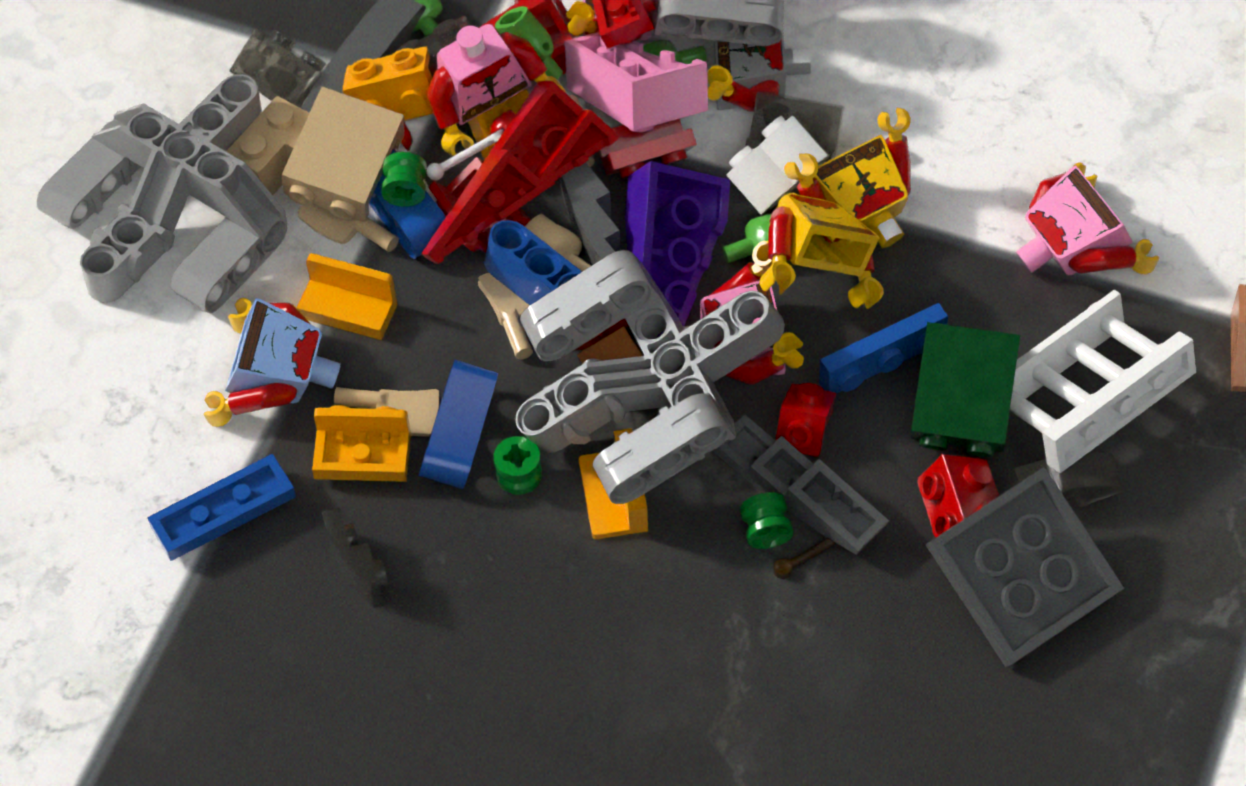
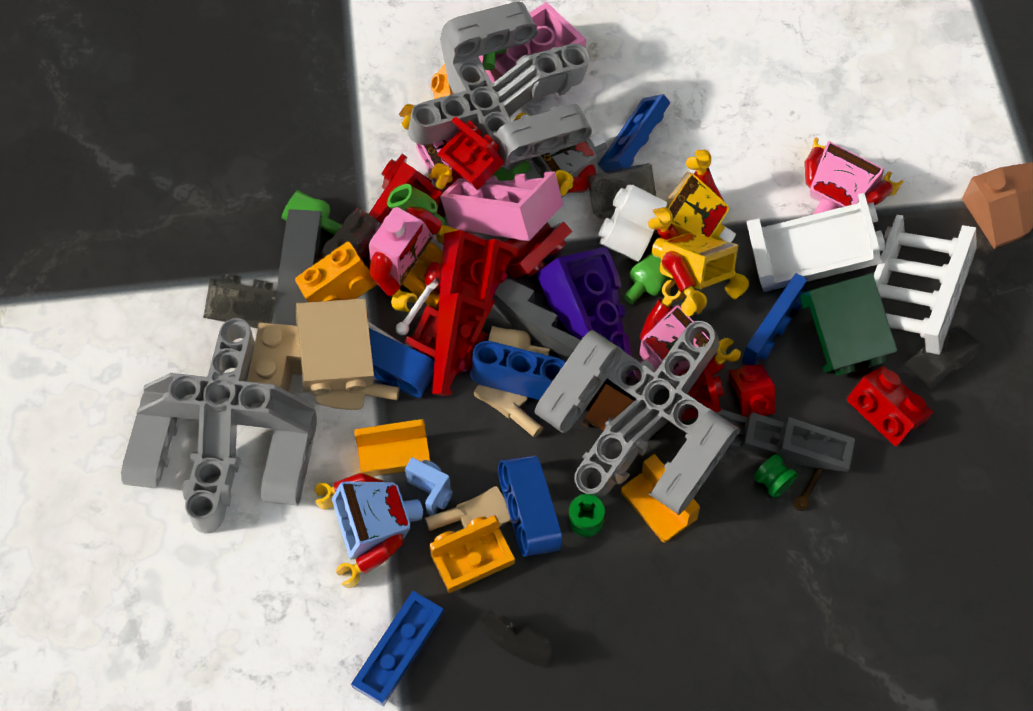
camera: 30 degrees left, 5 degrees up
(369, 355) = (430, 479): none -> light blue bracket
(404, 179) = (391, 345): green wheel -> none
(743, 391) = (706, 393): none -> red bracket
(857, 68) = (634, 133): none -> blue plate
(986, 282) = (817, 244): none -> white panel
(1024, 567) = (961, 430): dark grey plate -> none

